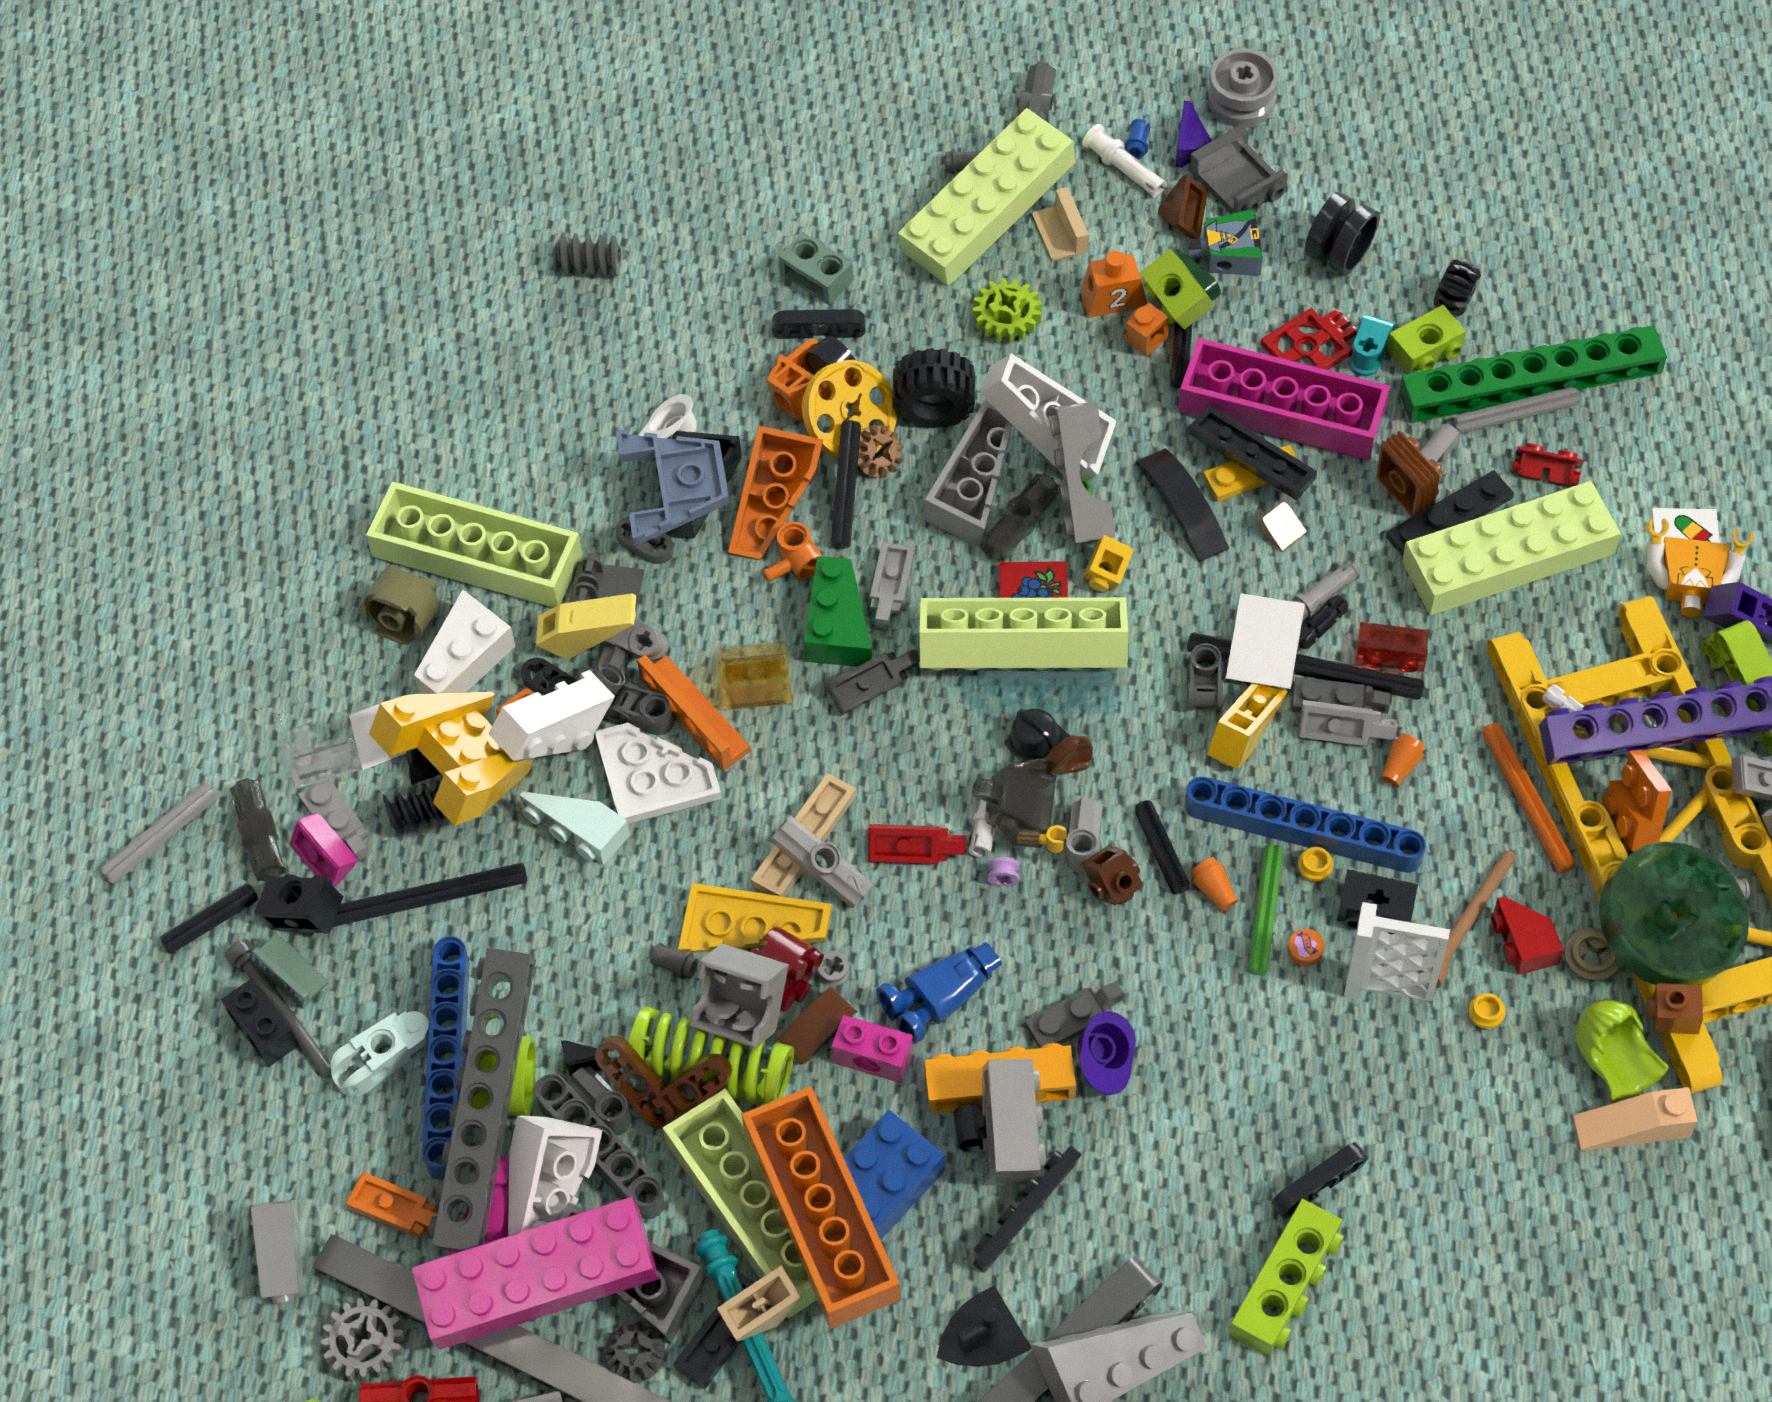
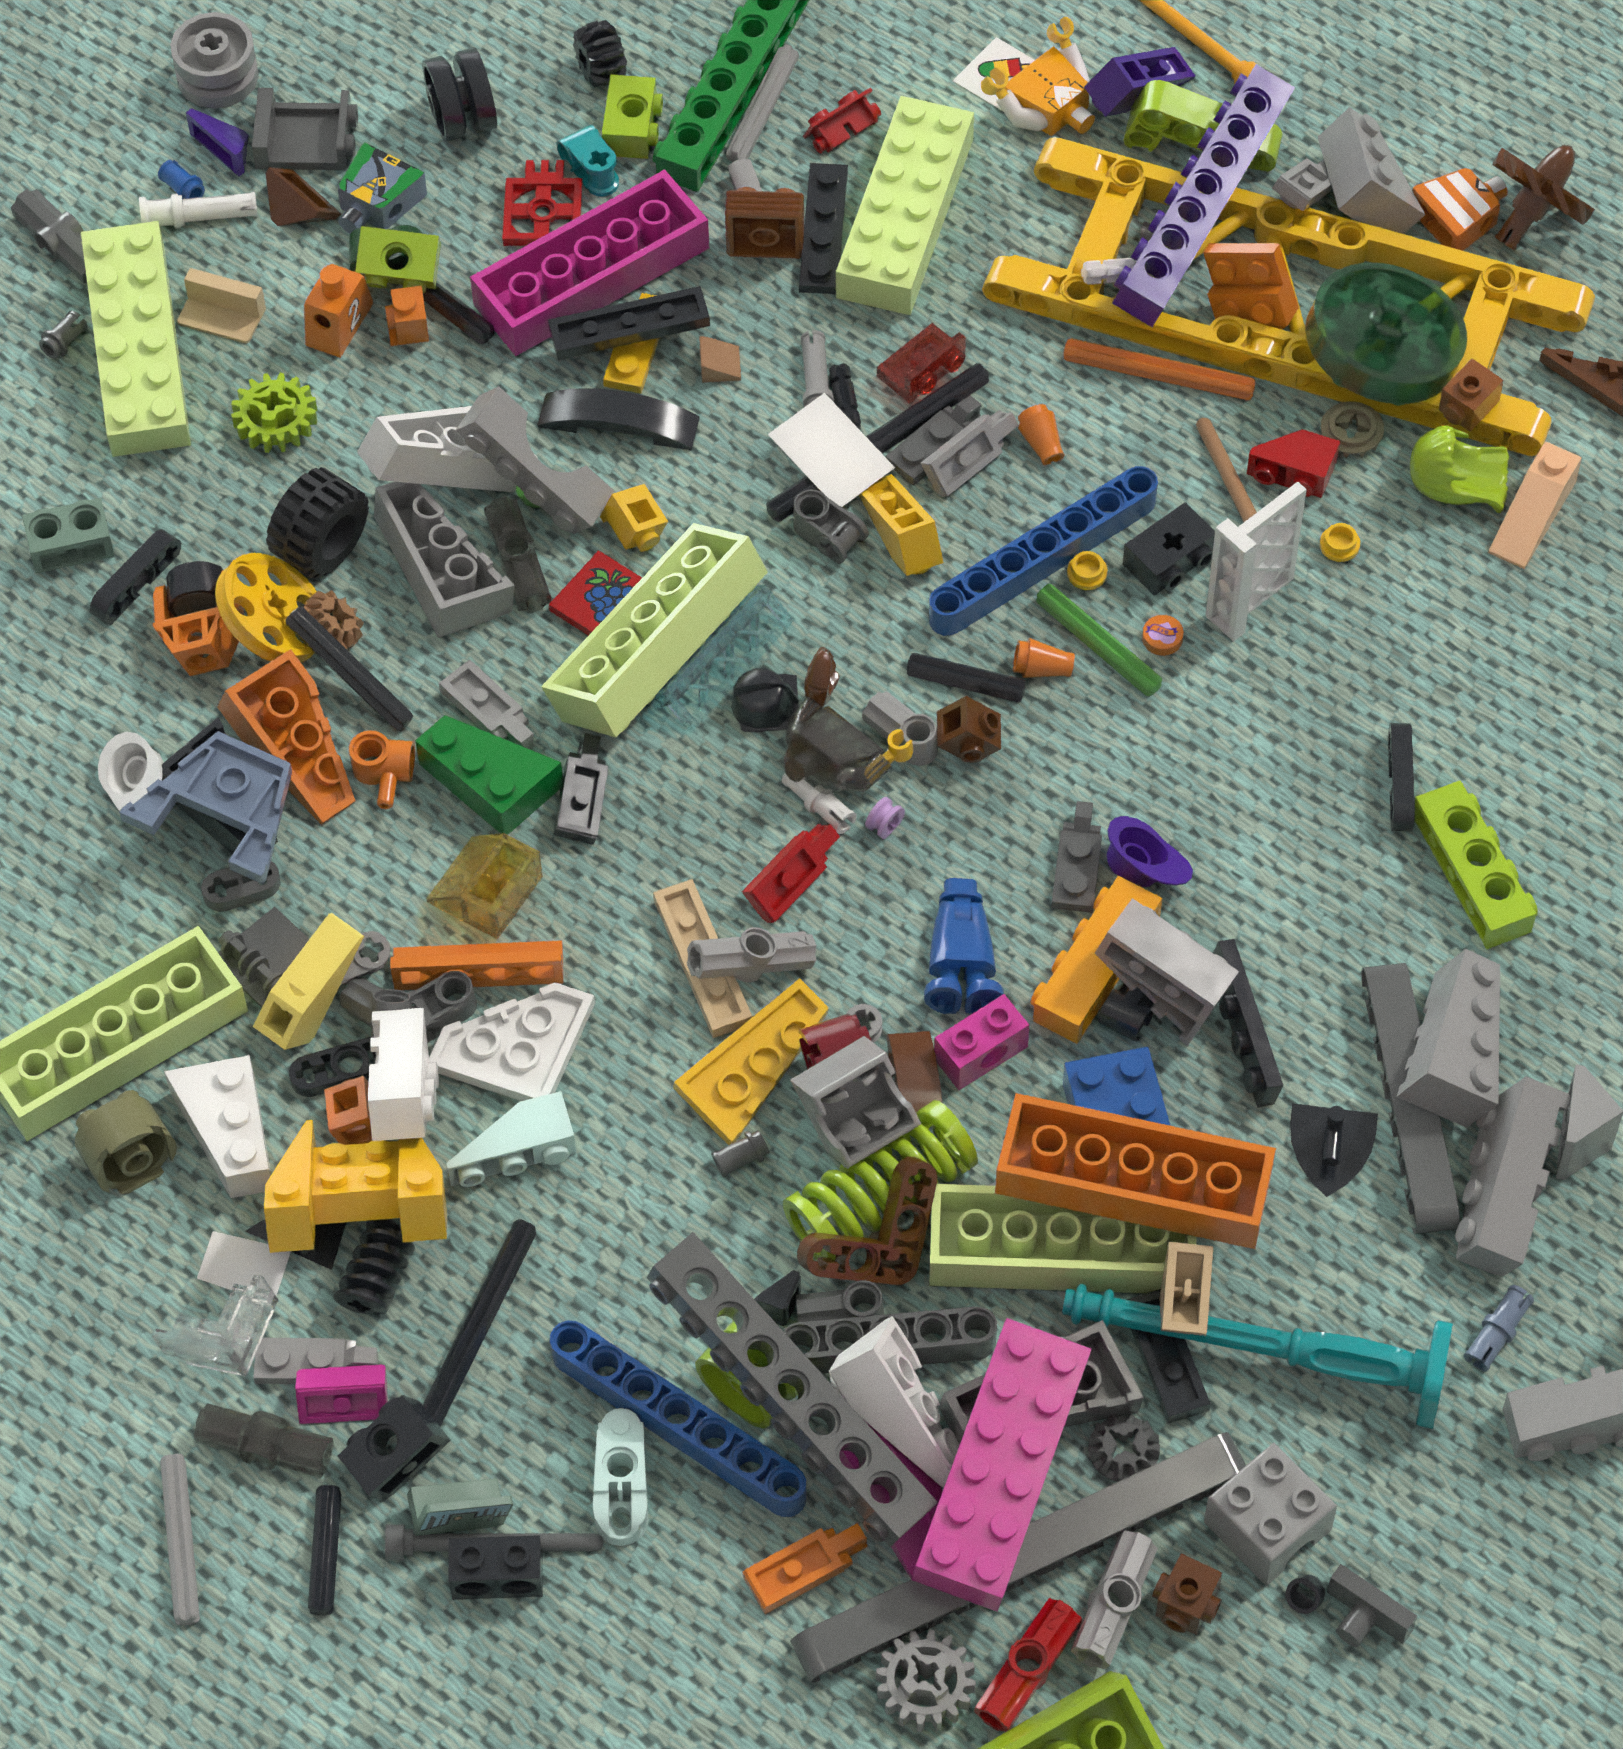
camera: 55 degrees left, 0 degrees up
(278, 1249) = (766, 1696): light grey slope -> none

